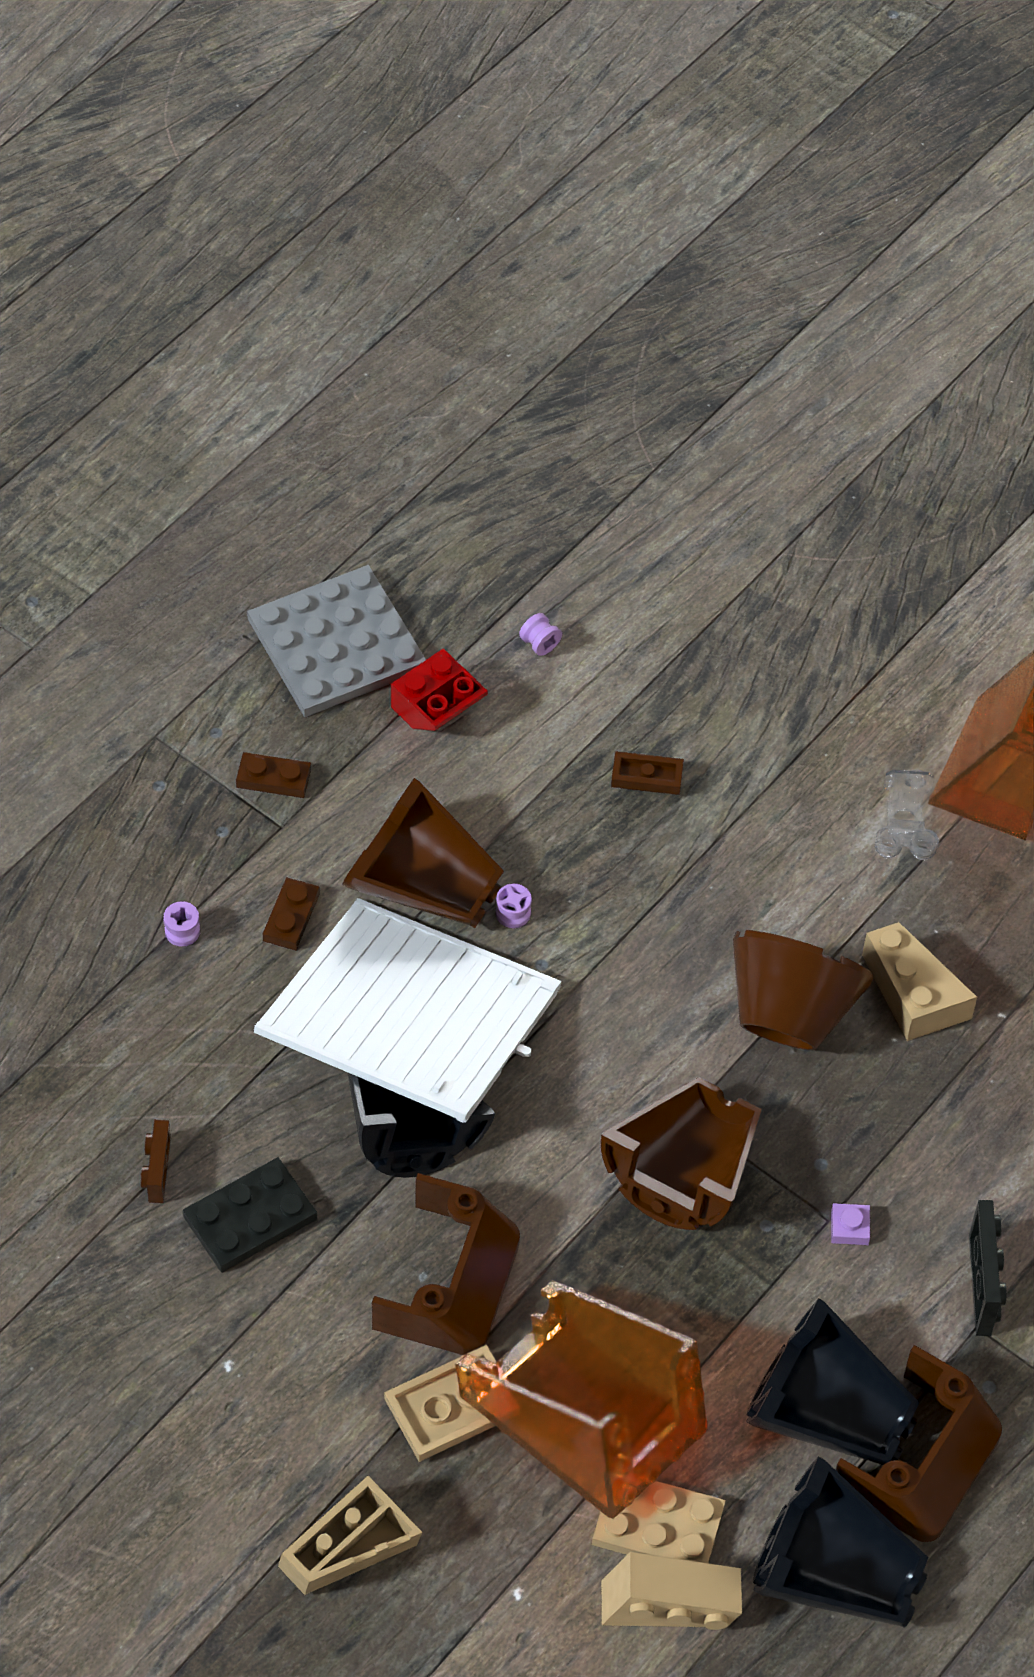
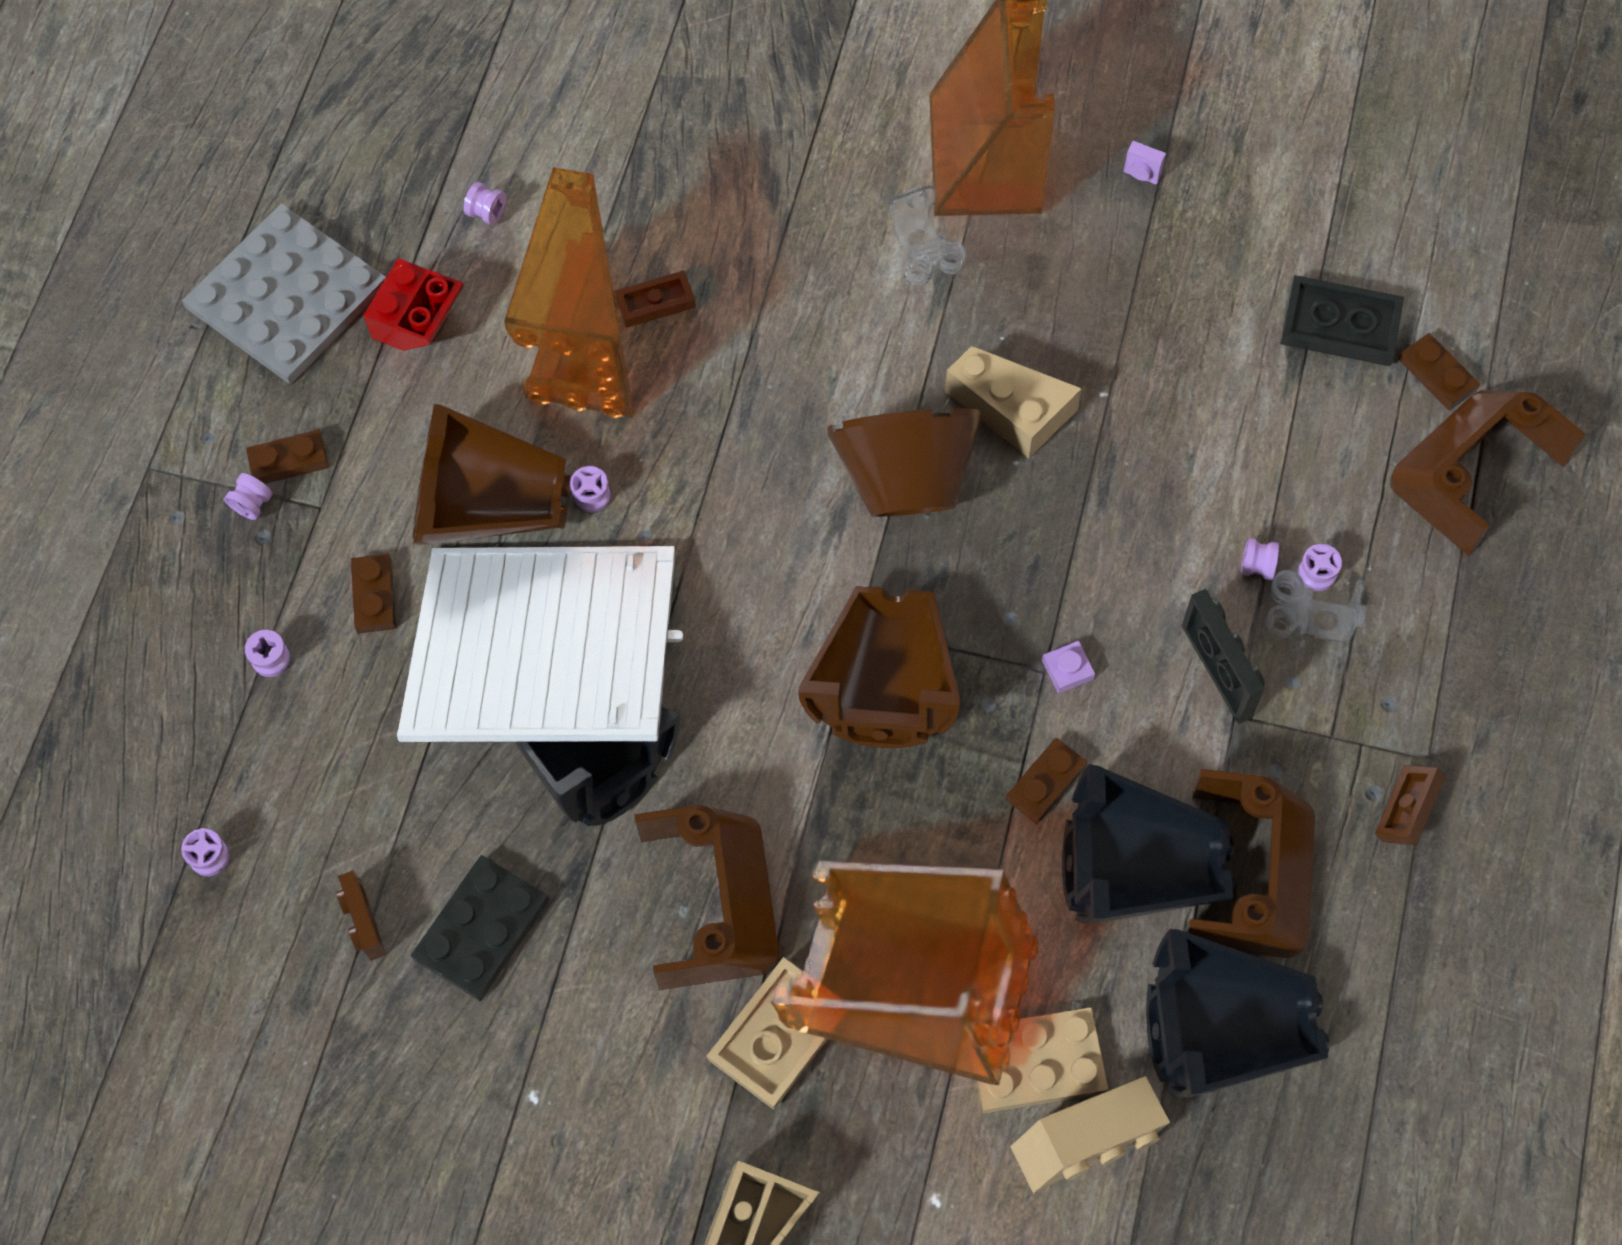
camera: 20 degrees left, 10 degrees up
(55, 1048) = (199, 845): none -> lavender wheel
(226, 792) = (248, 496): none -> lavender wheel
(569, 743) = (570, 304): none -> clear orange windscreen
(780, 1306) = (1046, 780): none -> reddish brown plate

